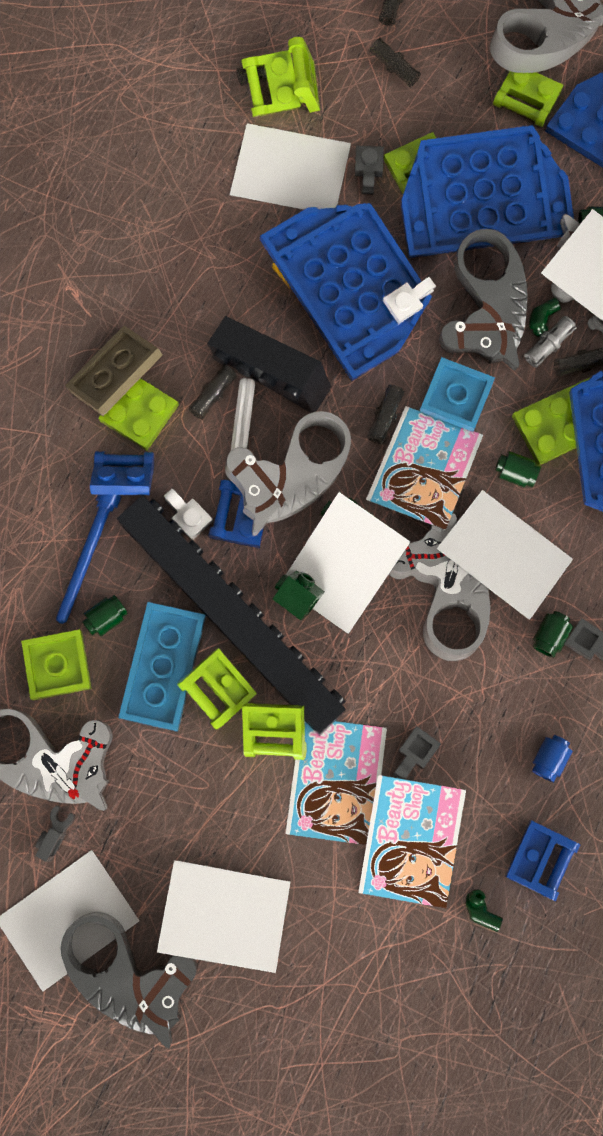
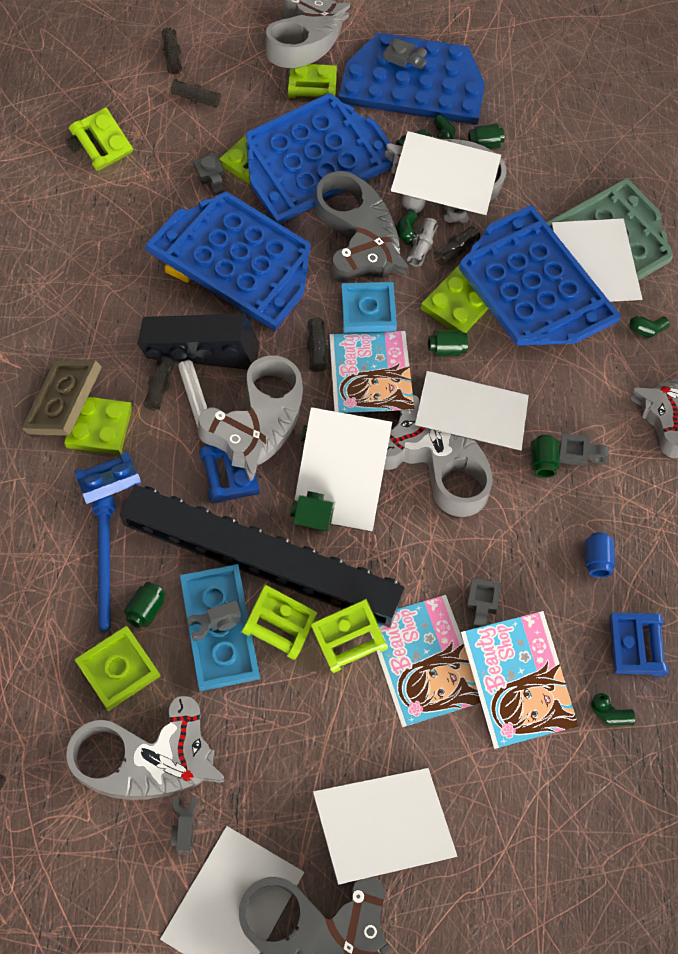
camera: 30 degrees left, 15 degrees down
(165, 664) = (220, 617): none -> dark grey plate
(189, 516) = (185, 488): white plate -> none
(289, 168) = (143, 197): white sticker -> none
(305, 74) = (125, 122): lime plate -> none
(406, 301) = (292, 252): white plate -> none

